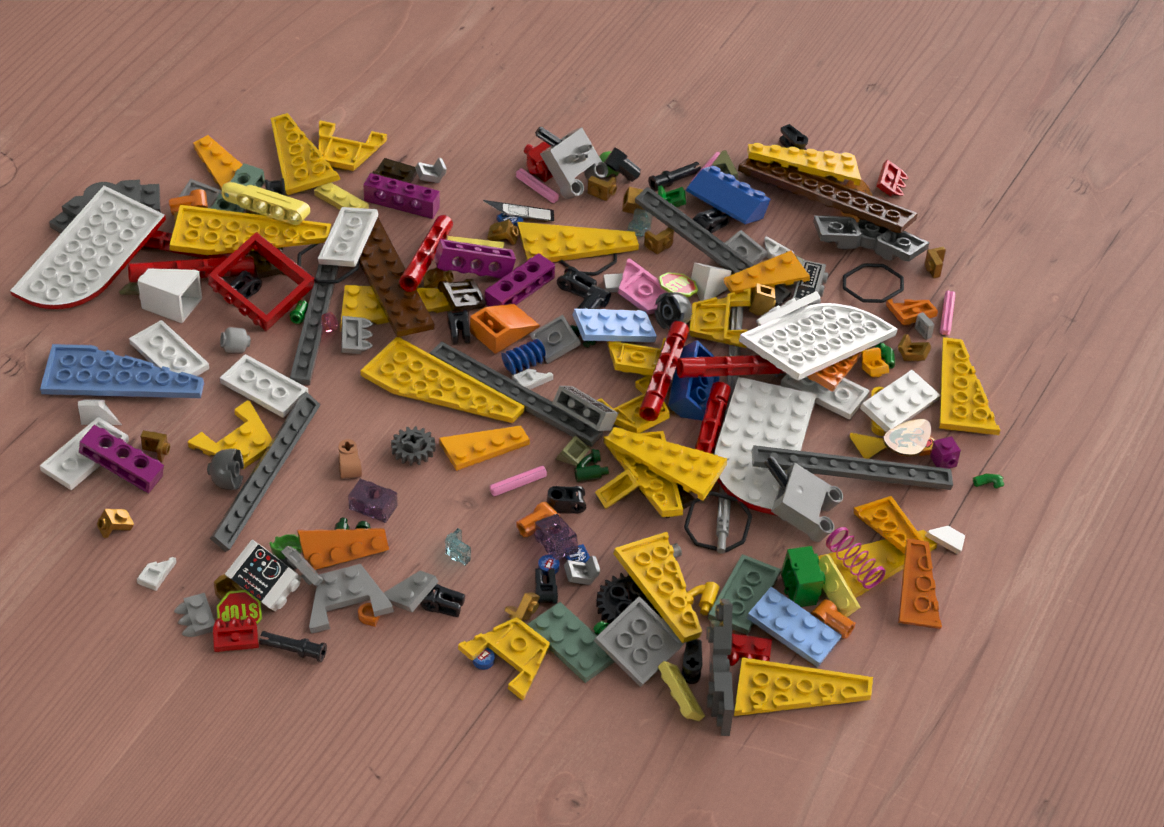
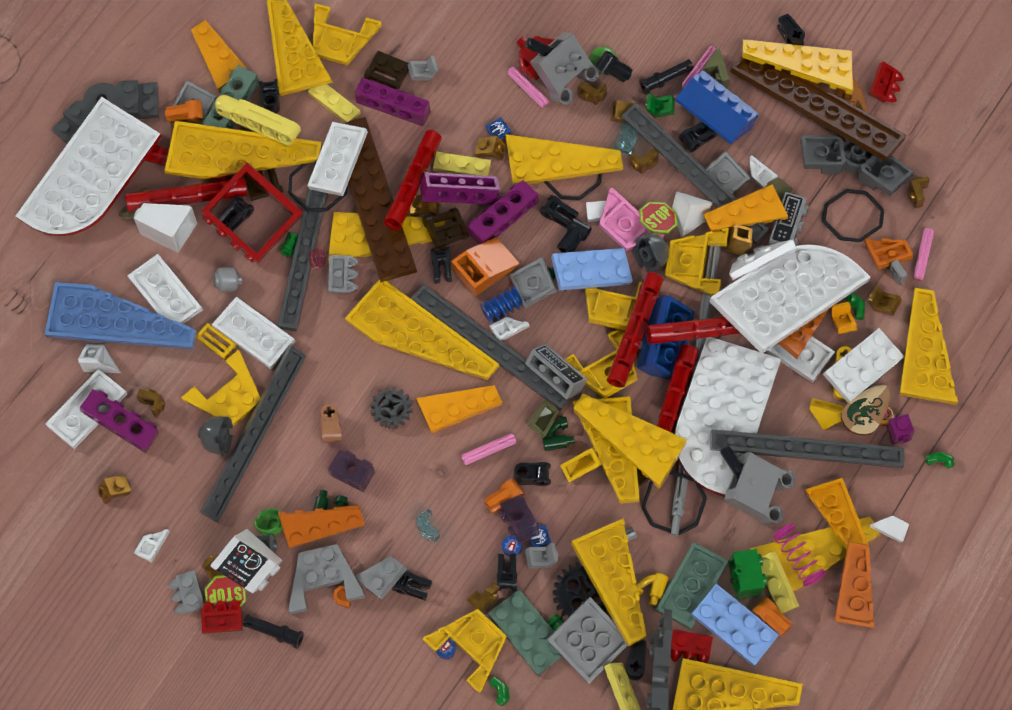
camera: 10 degrees right, 20 degrees up
(221, 397) = (223, 355): none -> yellow tile
(296, 560) = (281, 550): light grey wing -> none
(523, 211) = (512, 120): sticker -> none
(548, 694) = (502, 691): none -> green arm

